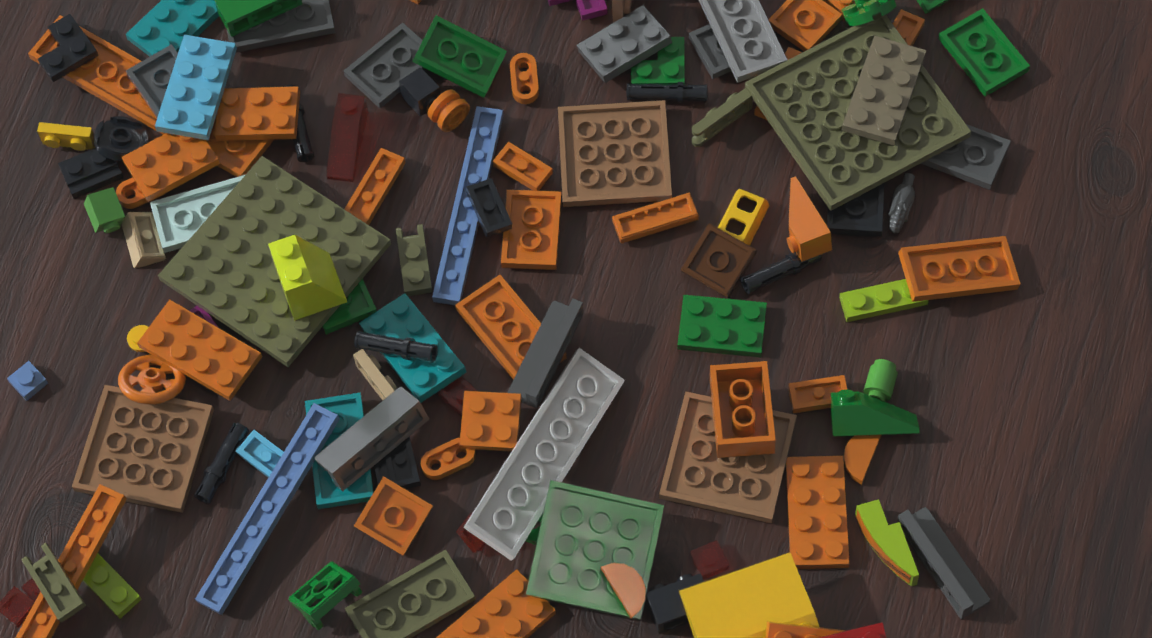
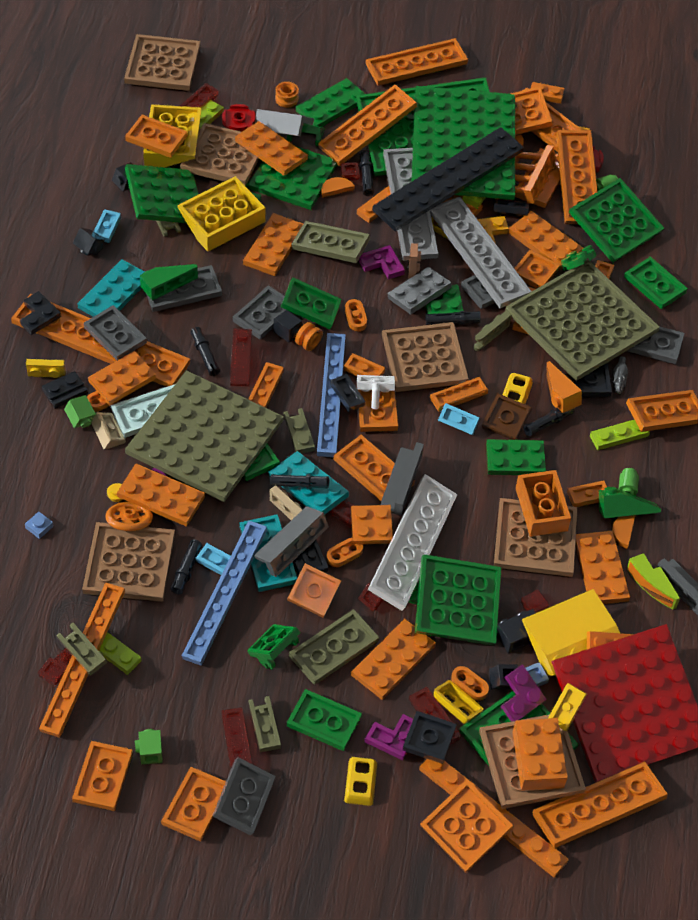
camera: 15 degrees left, 10 degrees down
(119, 137) = (82, 366): black tile -> none
(196, 87) = (135, 329): medium azure plate -> none
(258, 113) = (178, 345): orange plate -> none
(306, 276) = (230, 439): neon yellow slope -> none
(528, 197) = (376, 384): none -> white plate
(627, 586) = (484, 620): orange tile -> none
(647, 259) = (459, 419): none -> medium azure plate
(884, 90) = (598, 305): dark tan plate -> none

